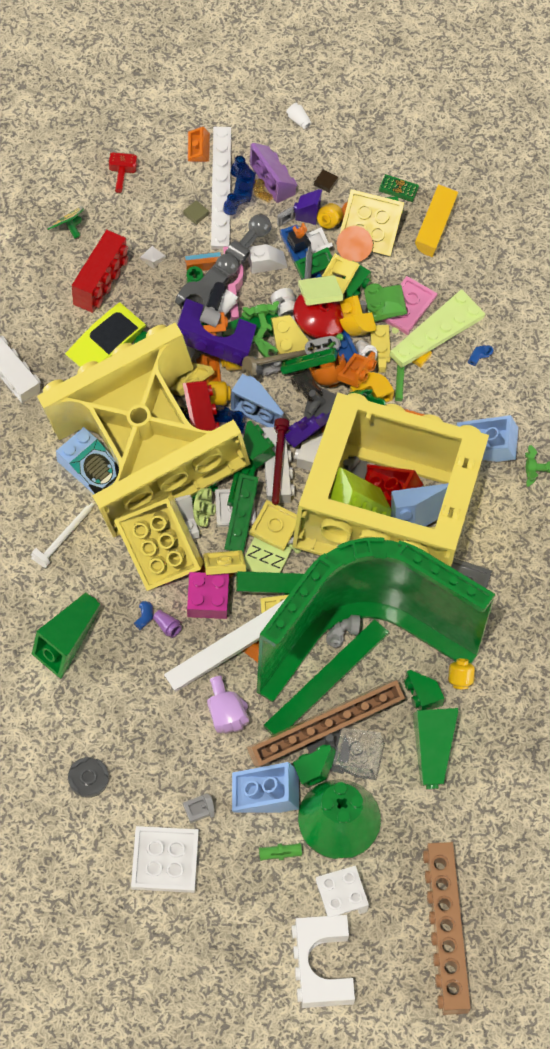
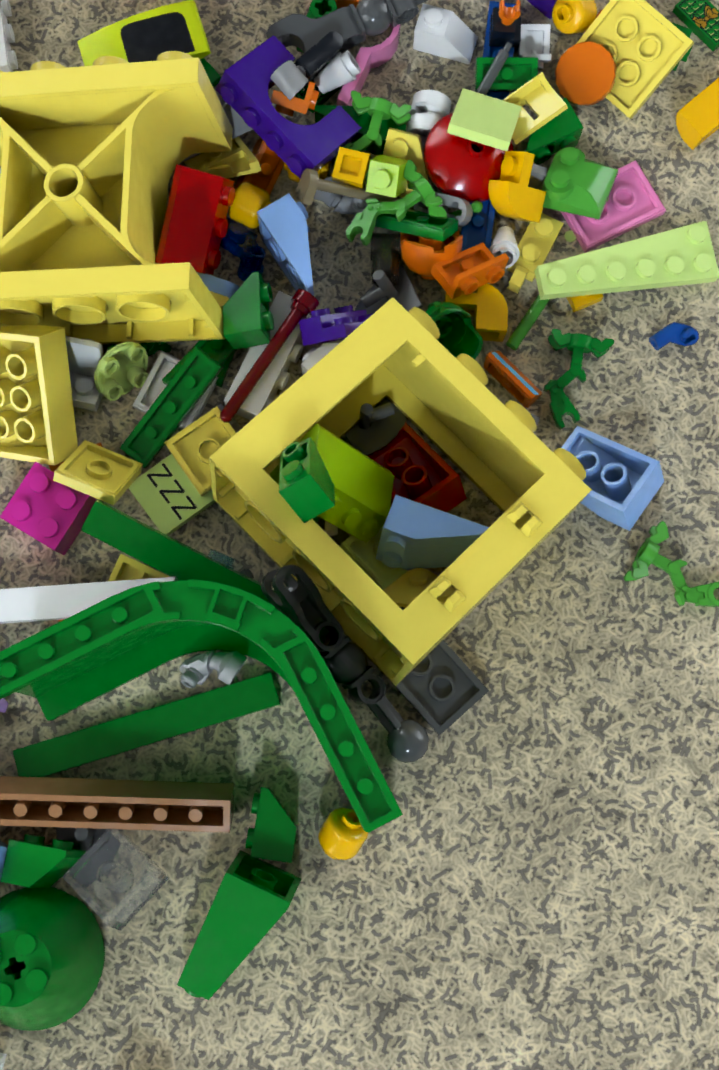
camera: 30 degrees right, 15 degrees up
(264, 346) = (351, 167): none -> yellow plate
(285, 342) = (386, 176): none -> lime brick
(309, 341) = (422, 191): none -> bright green piece
(353, 491) = (305, 480): none -> green slope
(434, 381) = (578, 345): none -> green piece

